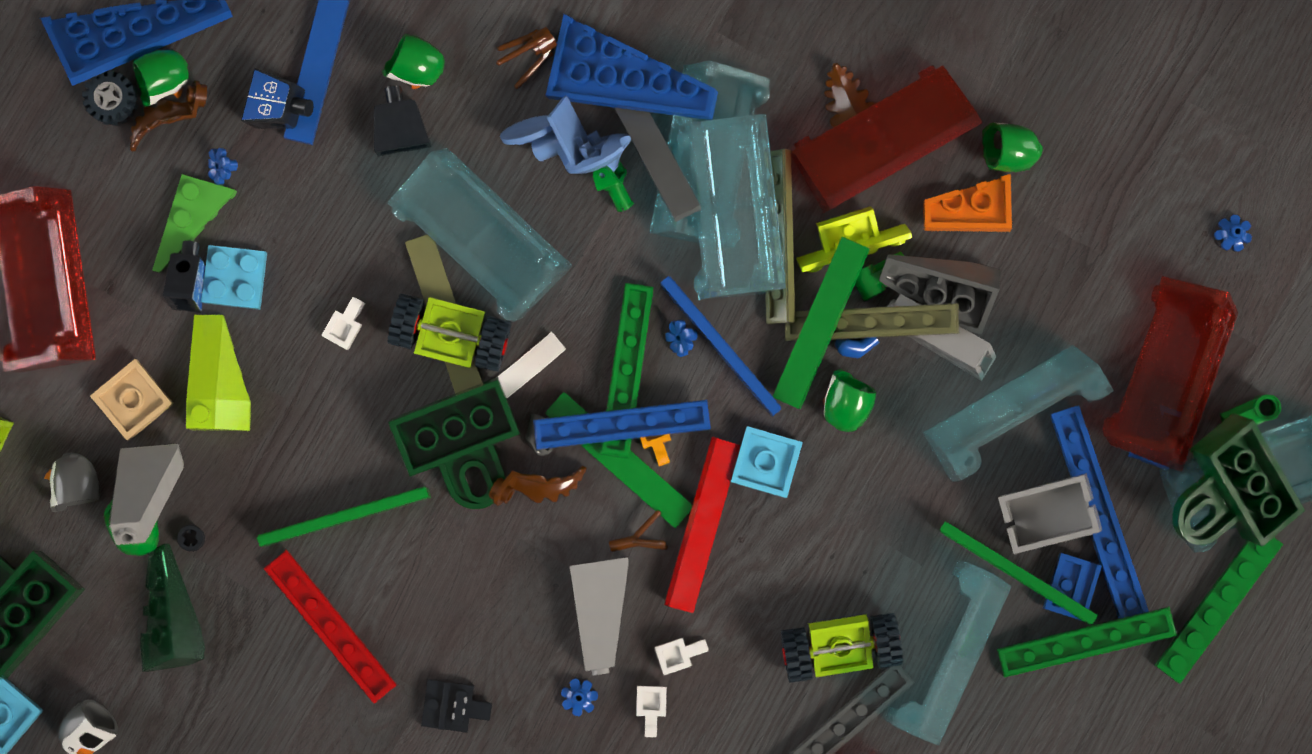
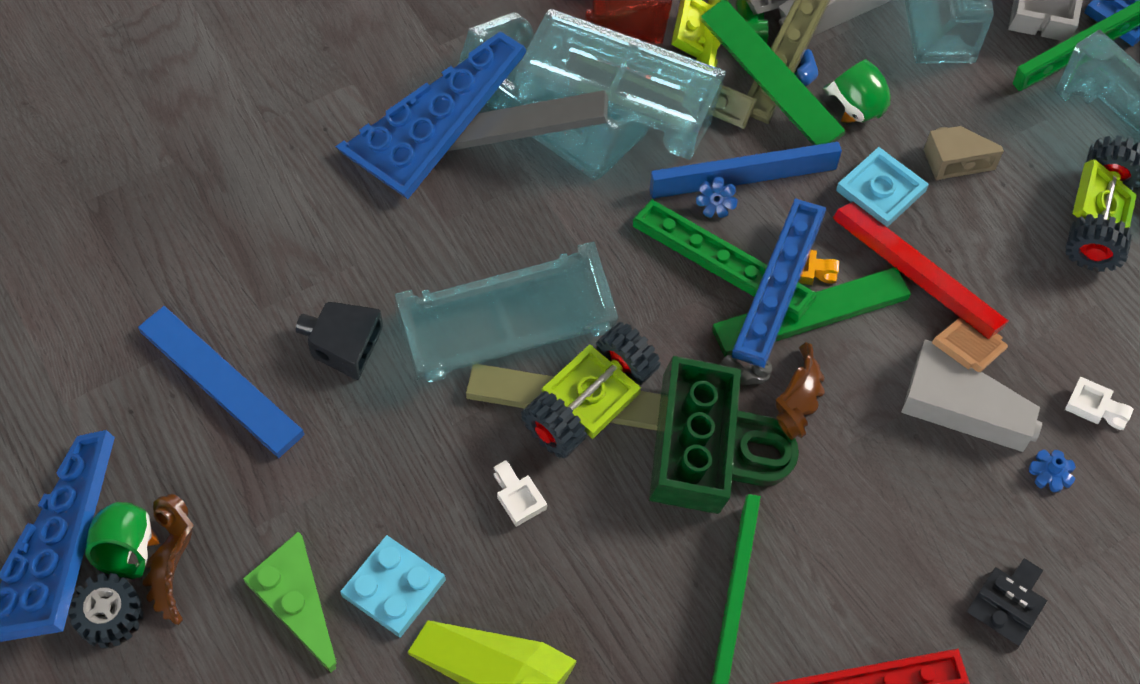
camera: 60 degrees left, 25 degrees down
(185, 279) = (365, 630): black torso -> none
(220, 166) = (262, 531): blue plant -> none
(274, 102) = (235, 436): torso -> none
(415, 62) = (288, 284): green piece -> none
(530, 364) = (662, 334): white sticker -> none
(539, 42) = (349, 179): reddish brown plant -> none
(564, 136) = (481, 187): medium blue piece -> none
(634, 541) = (906, 335): reddish brown plant -> none
(644, 593) = (969, 346): none -> medium nougat window
(675, 655) = (1046, 353): white plate -> none
(835, 508) = (960, 152): none -> dark tan slope

